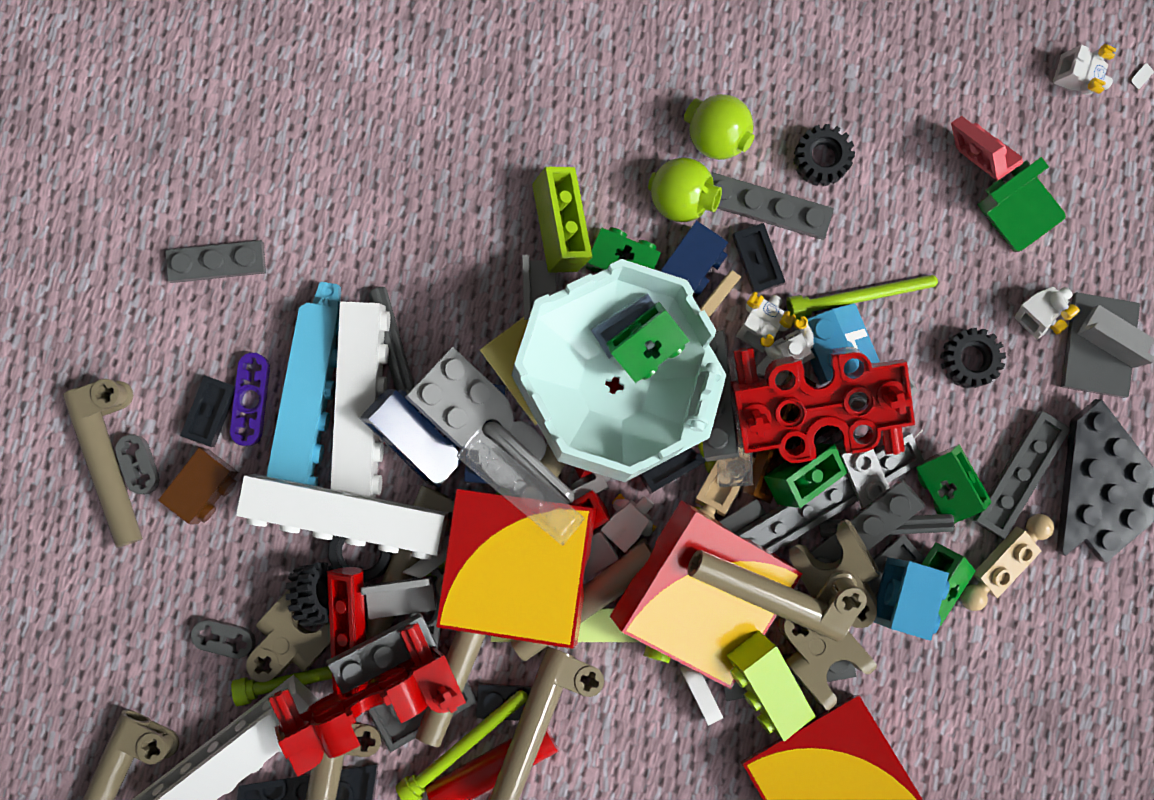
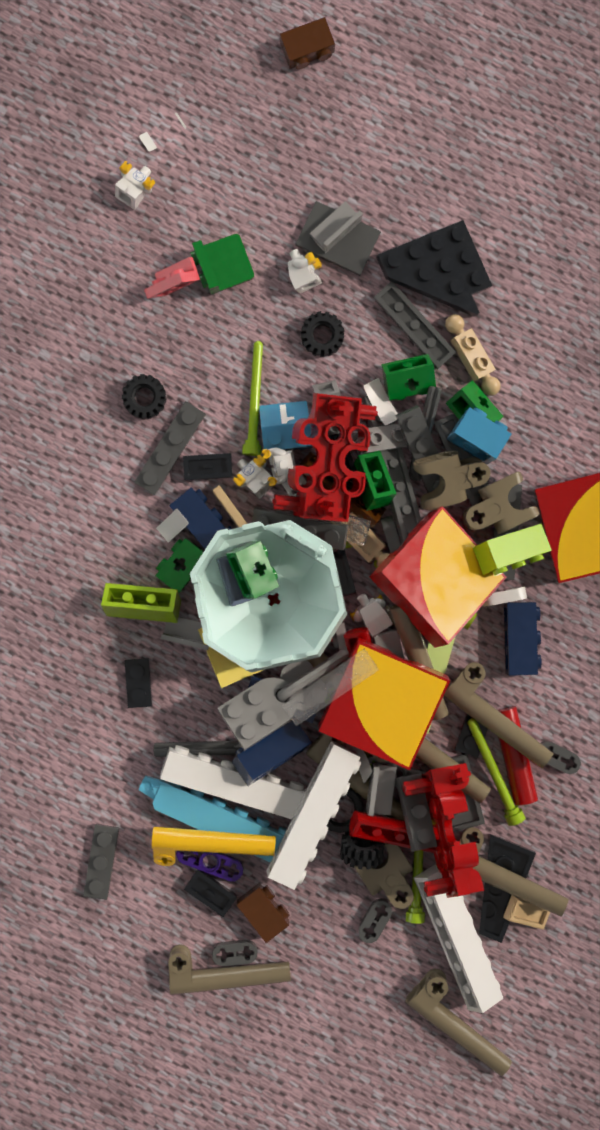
camera: 70 degrees left, 5 degrees up
(262, 335) = (168, 840): none -> yellow axle
(457, 246) = (138, 683): none -> black plate
(652, 733) = (521, 638): none -> dark blue brick
(671, 233) = (172, 525): none -> white sticker
(684, 190) = (143, 507): lime brick -> none
(720, 126) = (103, 468): lime brick -> none
(827, 614) = (475, 498): dark tan axle -> none
(915, 452) = (380, 399): none -> white sticker

